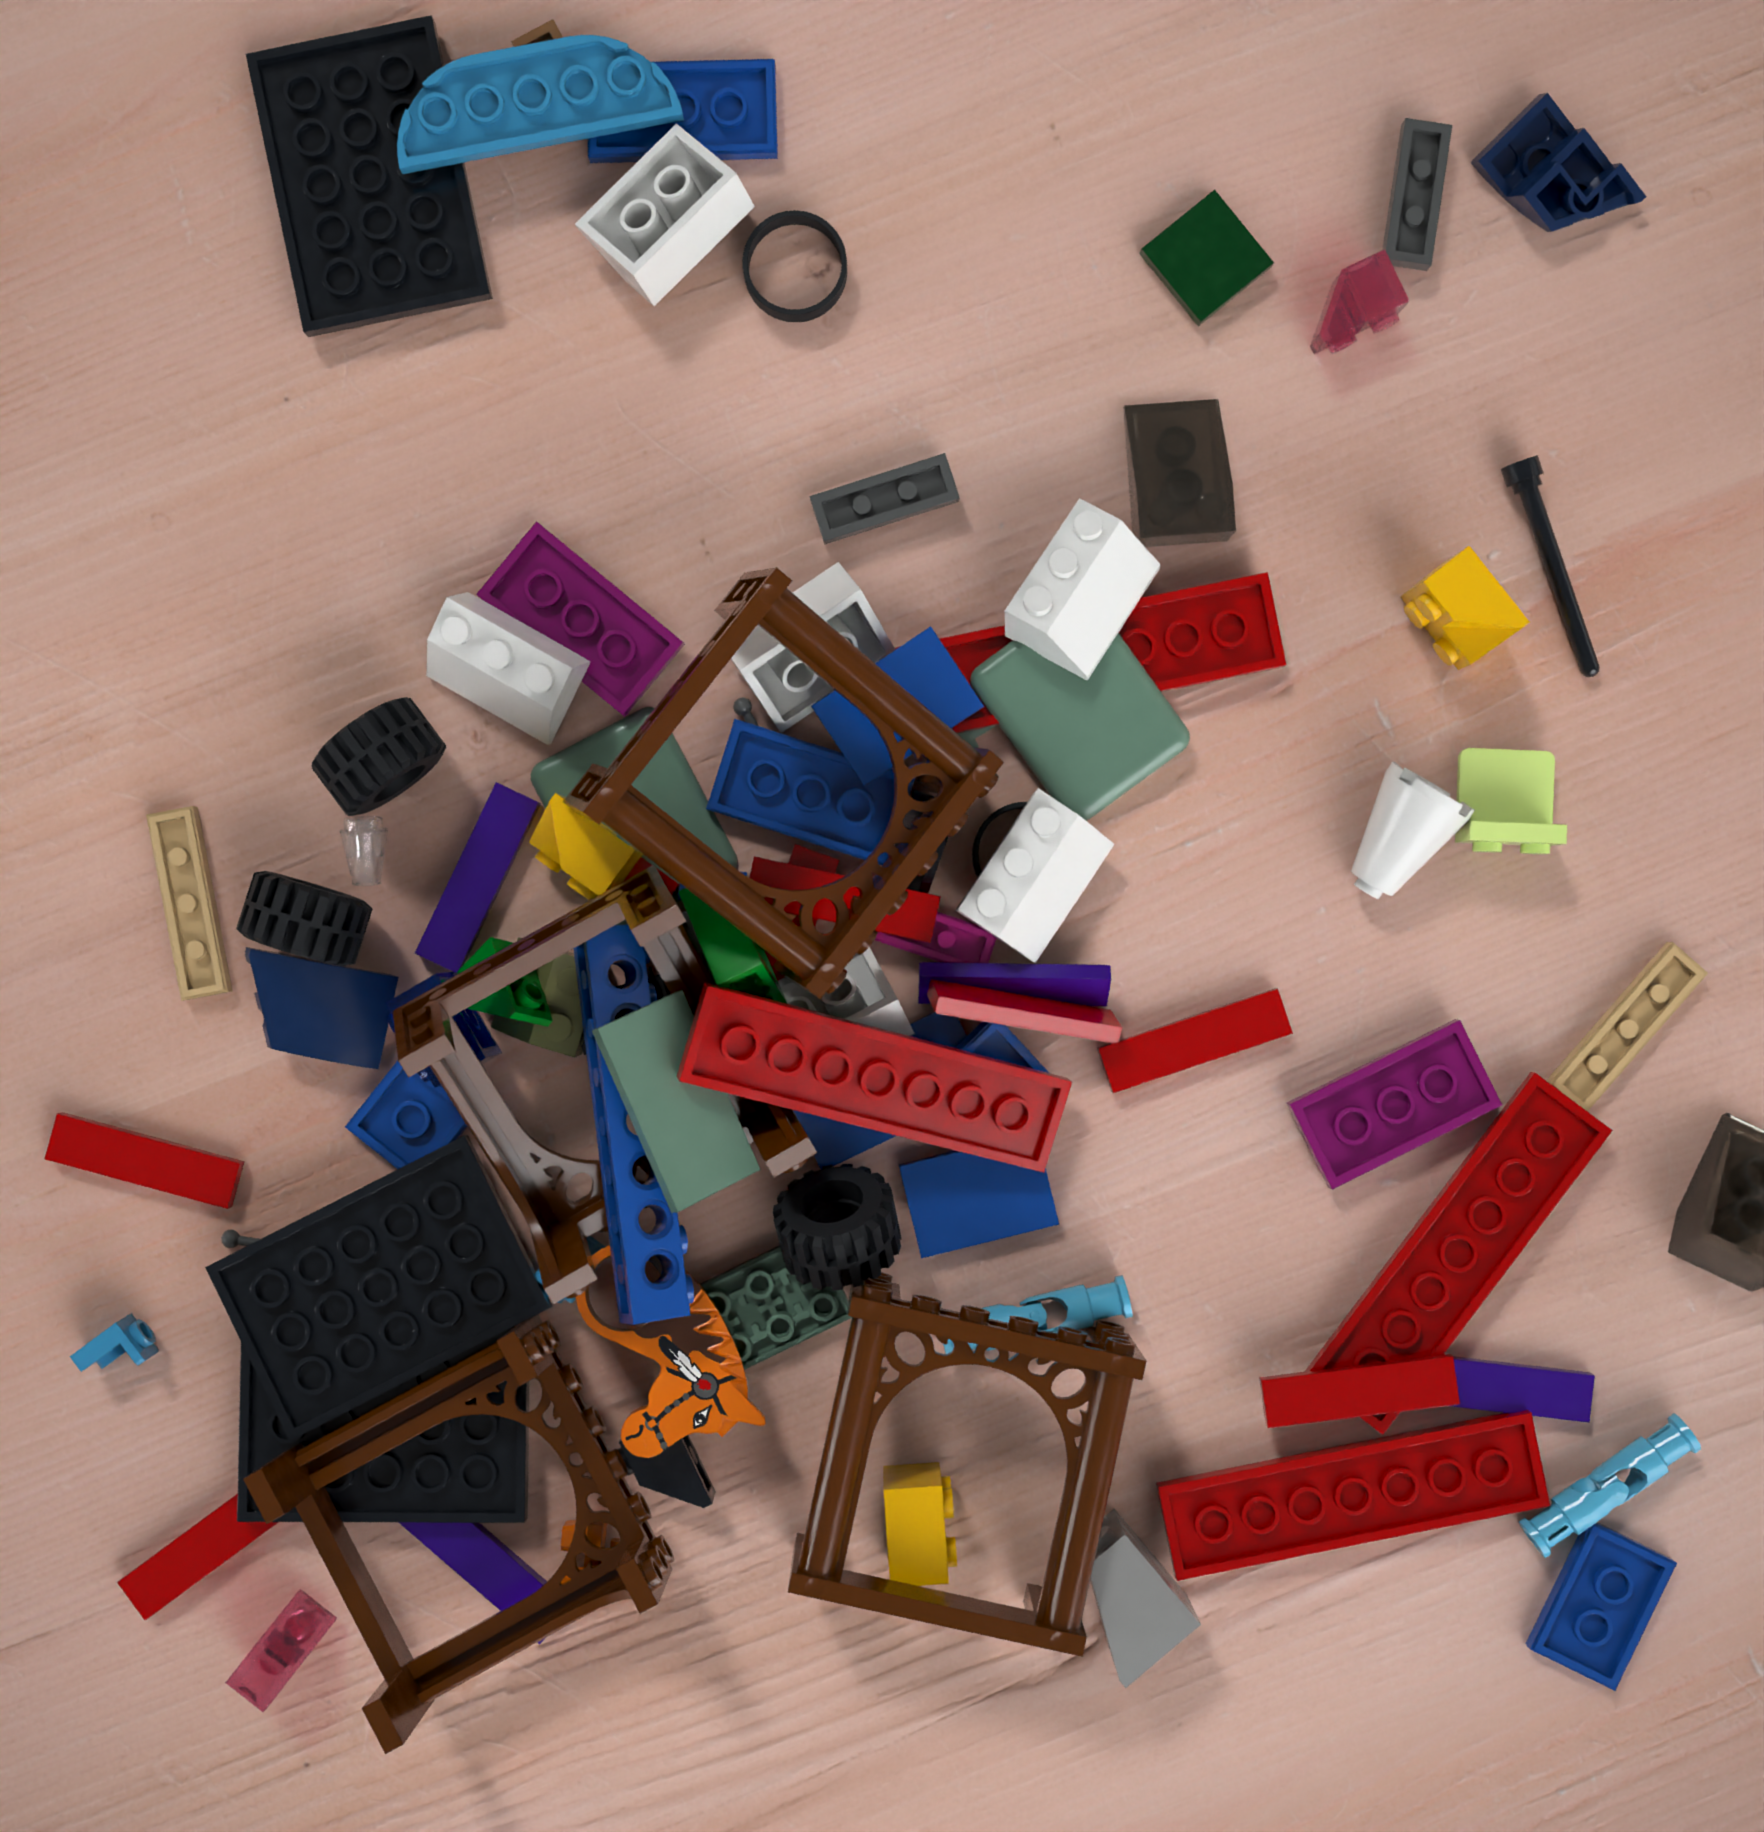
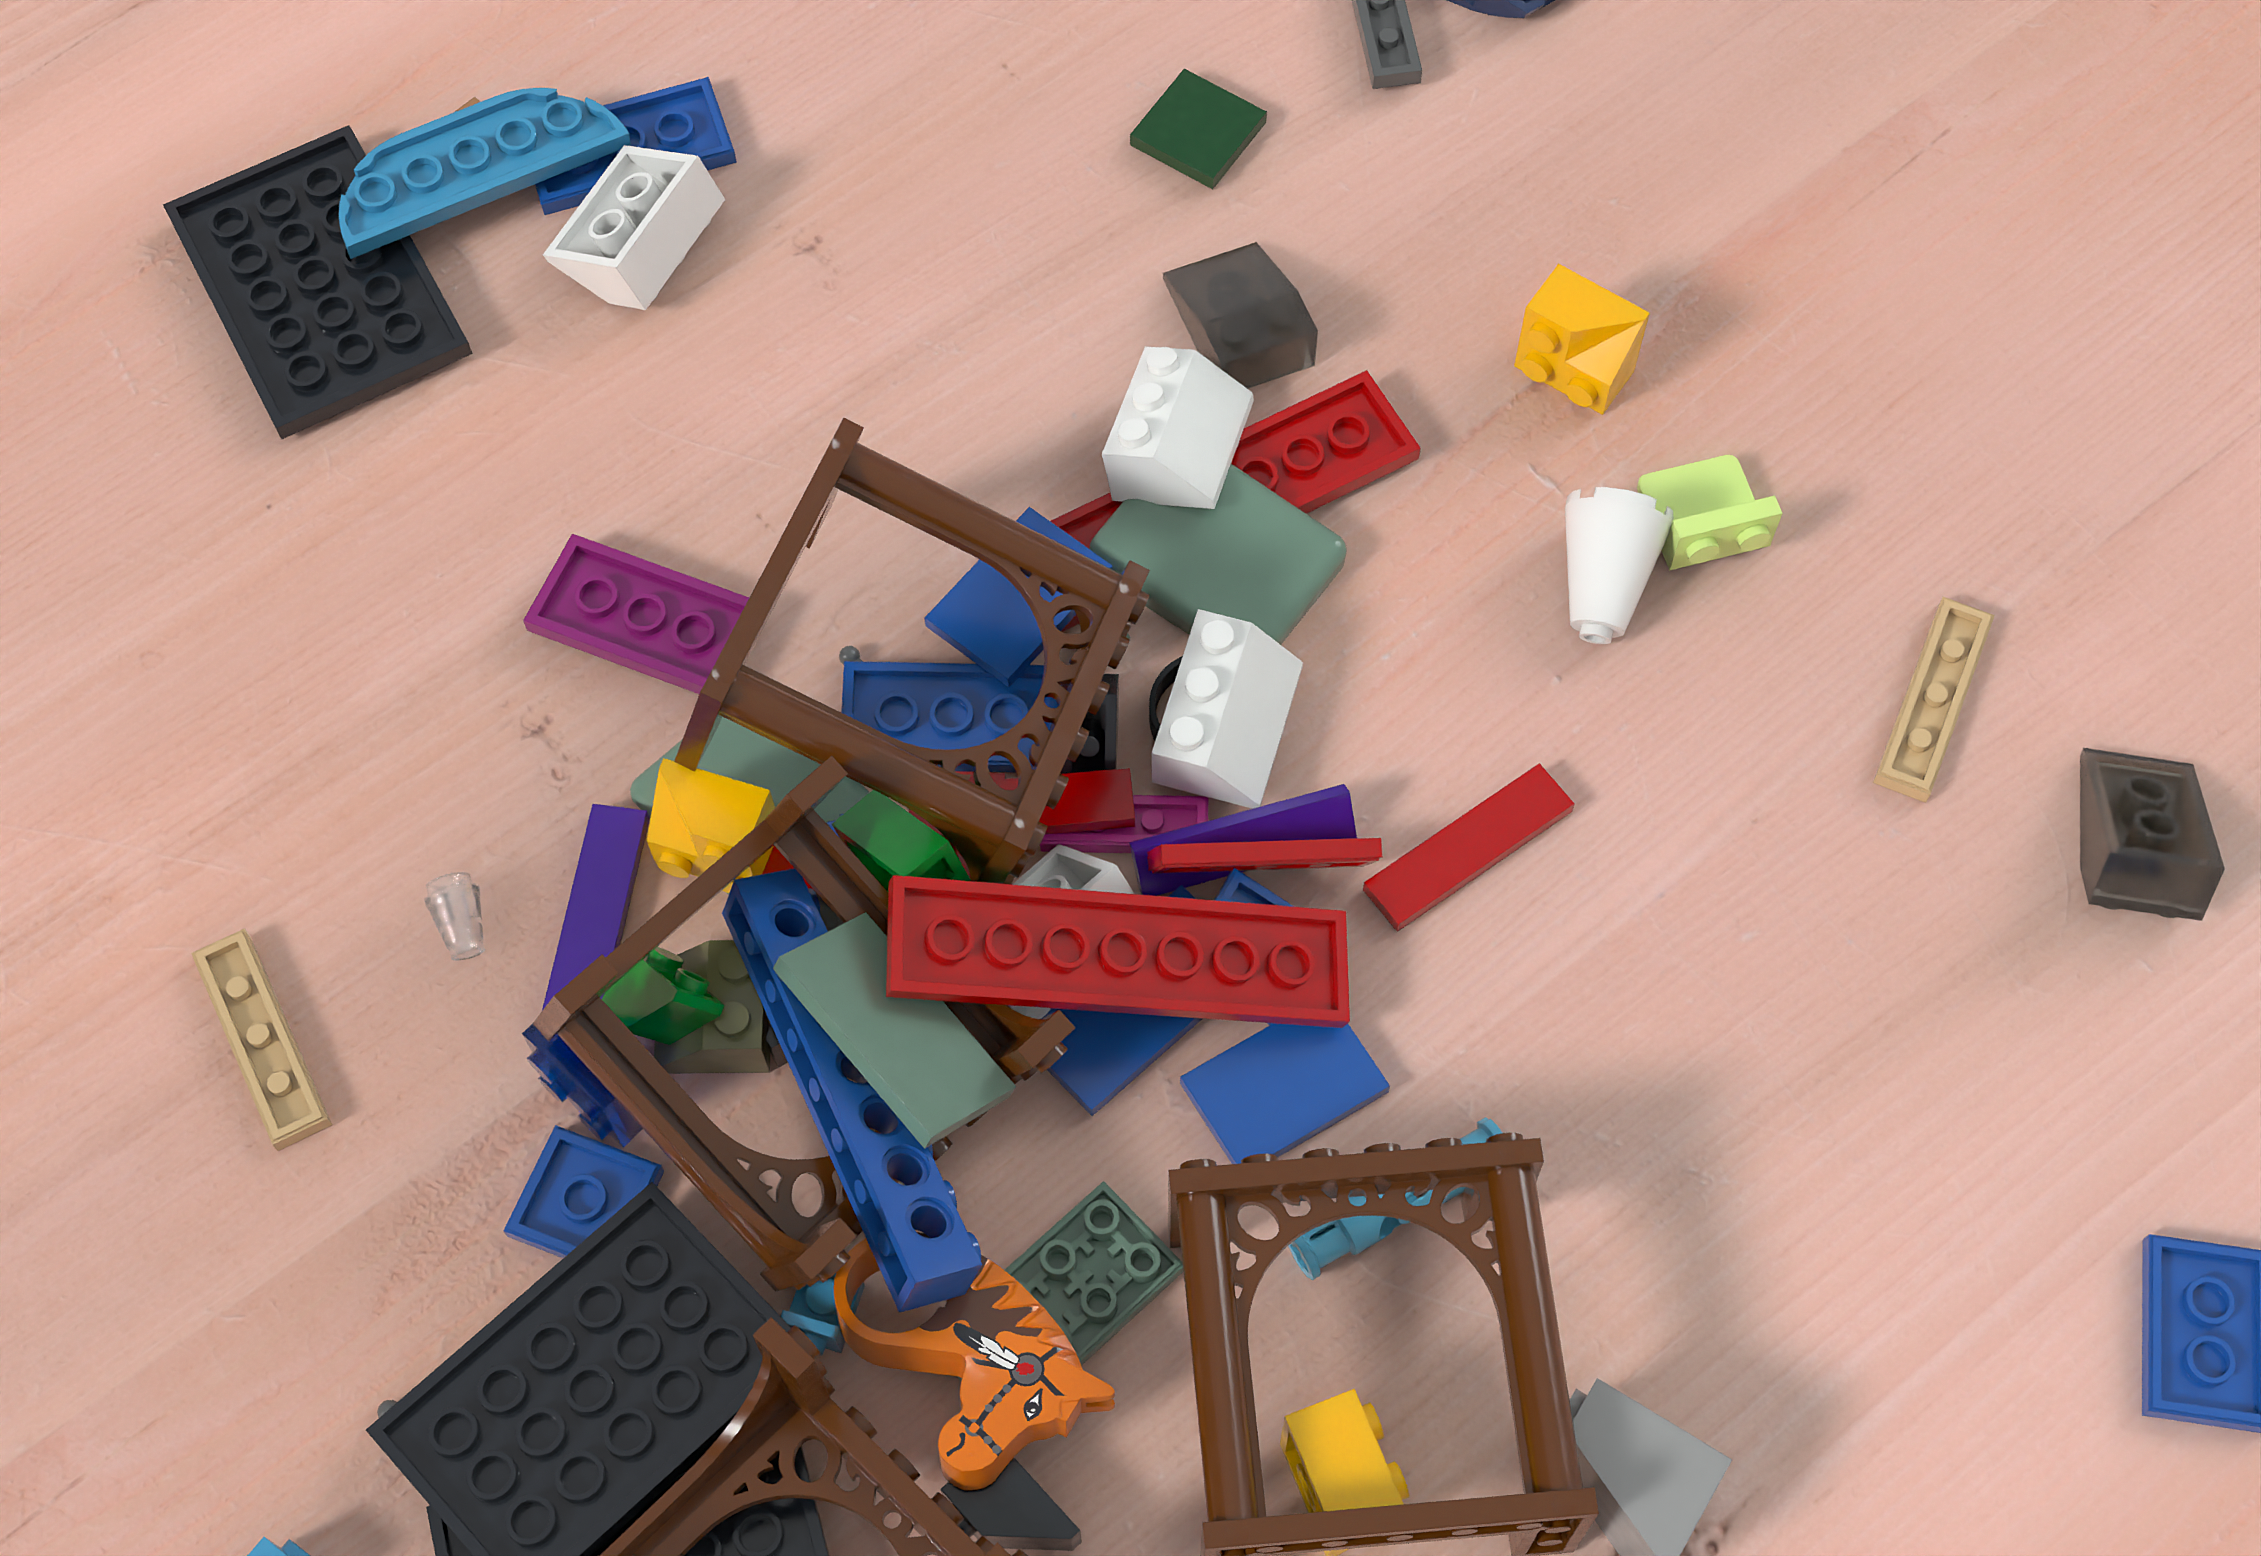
camera: 20 degrees left, 25 degrees down
(144, 1160) = (261, 1347): red tile -> none
(304, 918) = (403, 988): black tyre -> none
(322, 1007) = (444, 1095): dark blue slope -> none
(378, 756) = (451, 795): black tyre -> none
(503, 665) = (570, 679): white slope -> none
(784, 682) = (888, 585): white slope -> none
(794, 218) = (780, 200): black tyre -> none
(837, 1226) = (1125, 1140): black tyre -> none
(884, 498) = (944, 414): dark grey plate -> none
(1352, 1494) = (1854, 1289): red plate -> none
(1359, 299) = (1365, 119): clear pink slope -> none
(1359, 1390) = (1809, 1154): red tile -> none
(1394, 1104) = (1716, 844): magenta plate -> none
(1469, 1233) = (1854, 985): red plate -> none
(1524, 1387) = (1967, 1118): dark purple tile -> none
(1525, 479) = (1592, 223): black piece -> none
(1601, 1491) = (2132, 1212): medium azure piece -> none

